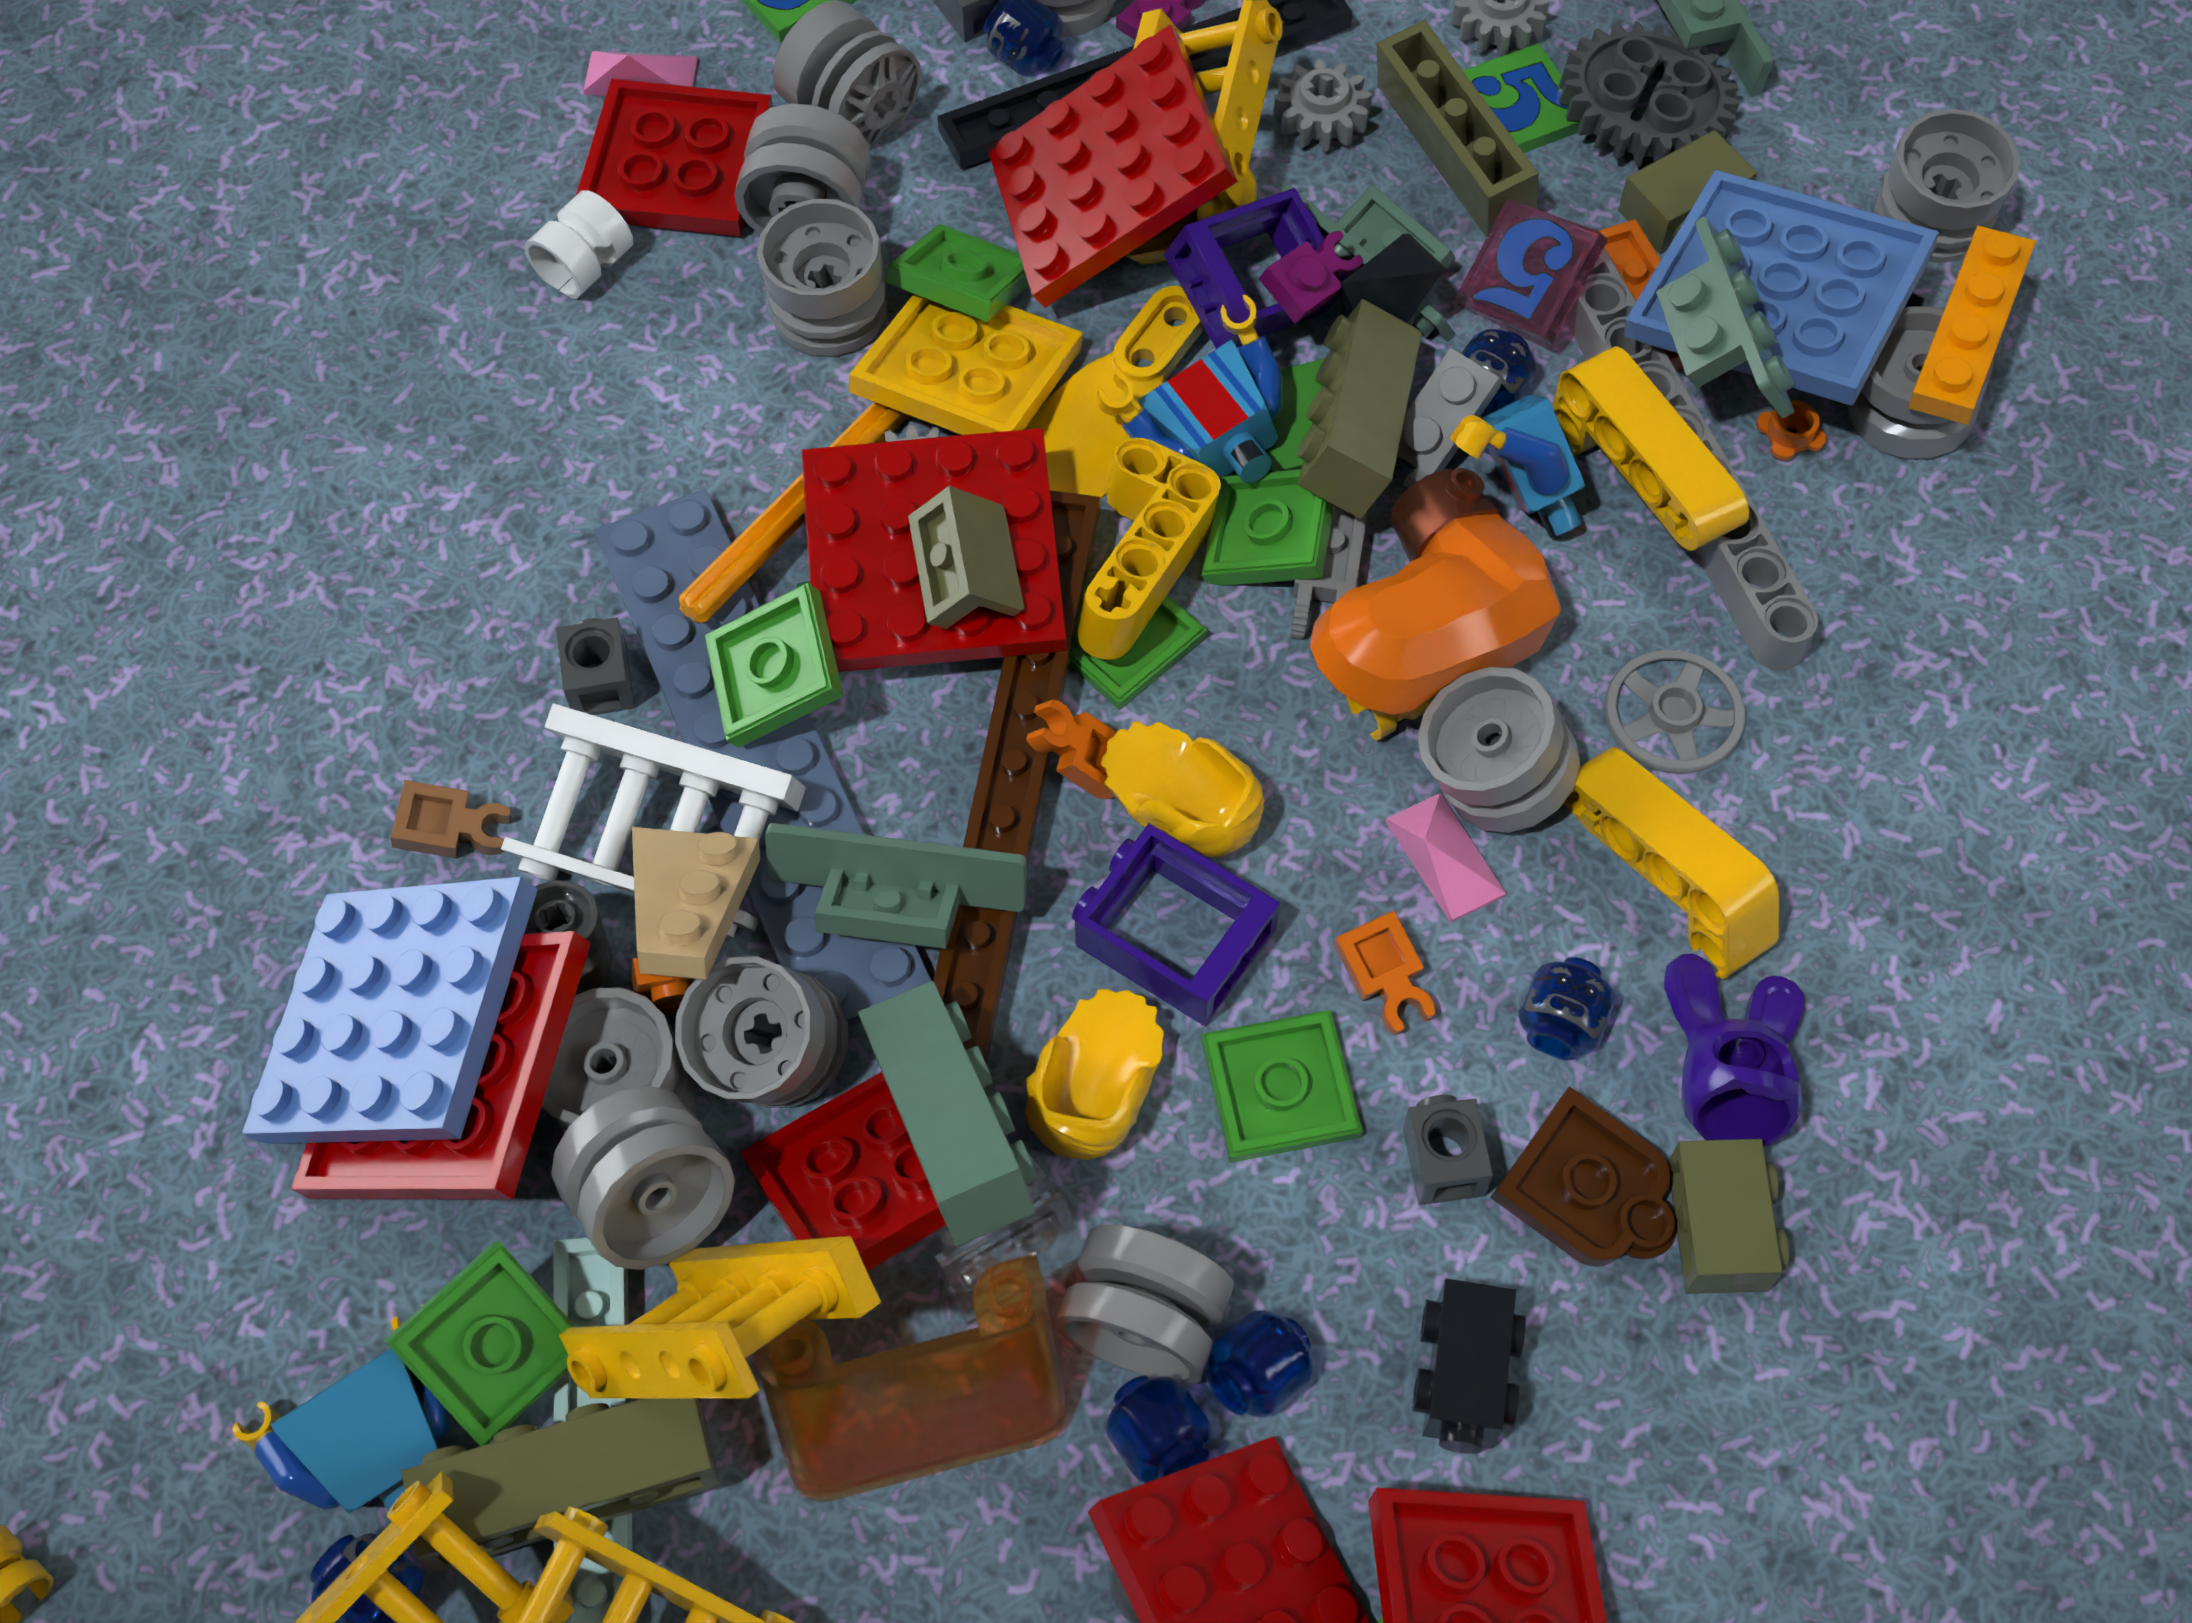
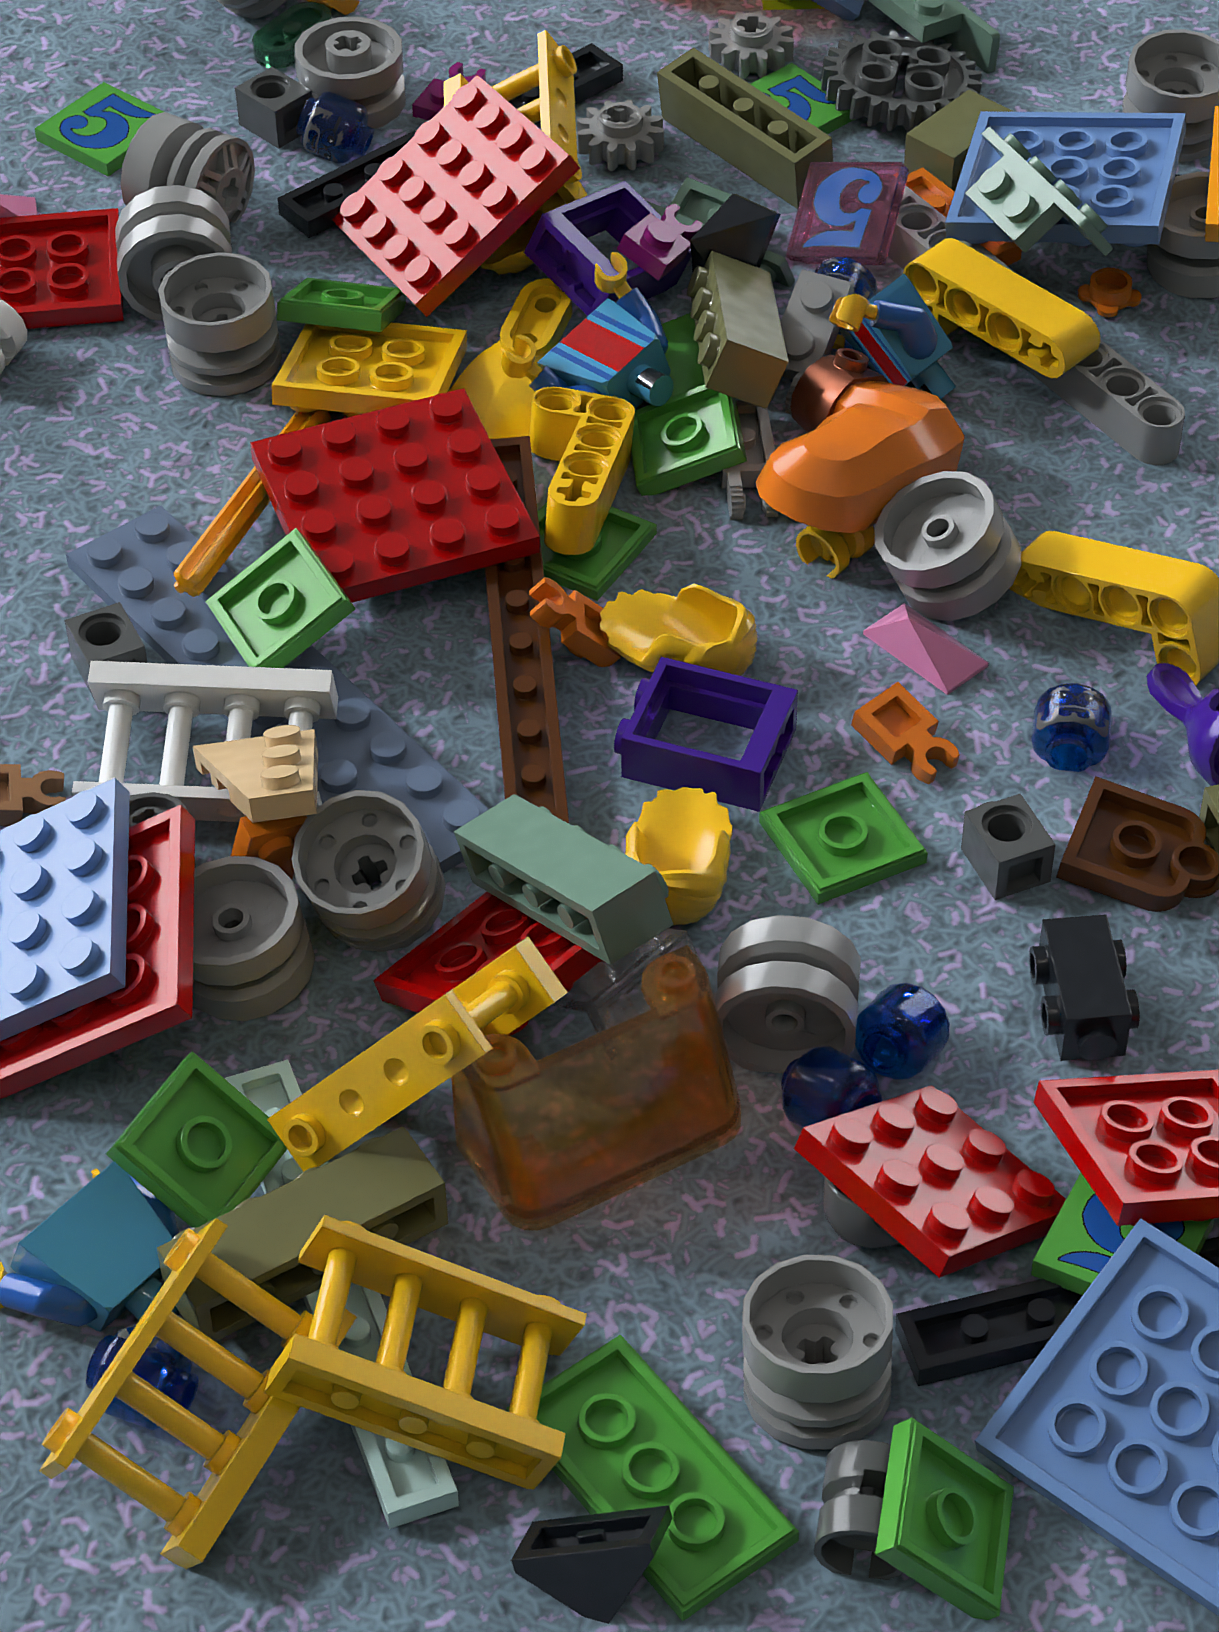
camera: 15 degrees left, 15 degrees down
(642, 1177) = (301, 990): light grey wheel -> none
(893, 885) = (447, 738): sand green bracket -> none
(964, 557) = (428, 482): olive panel -> none
(1675, 711) = (1085, 504): light grey wheel -> none

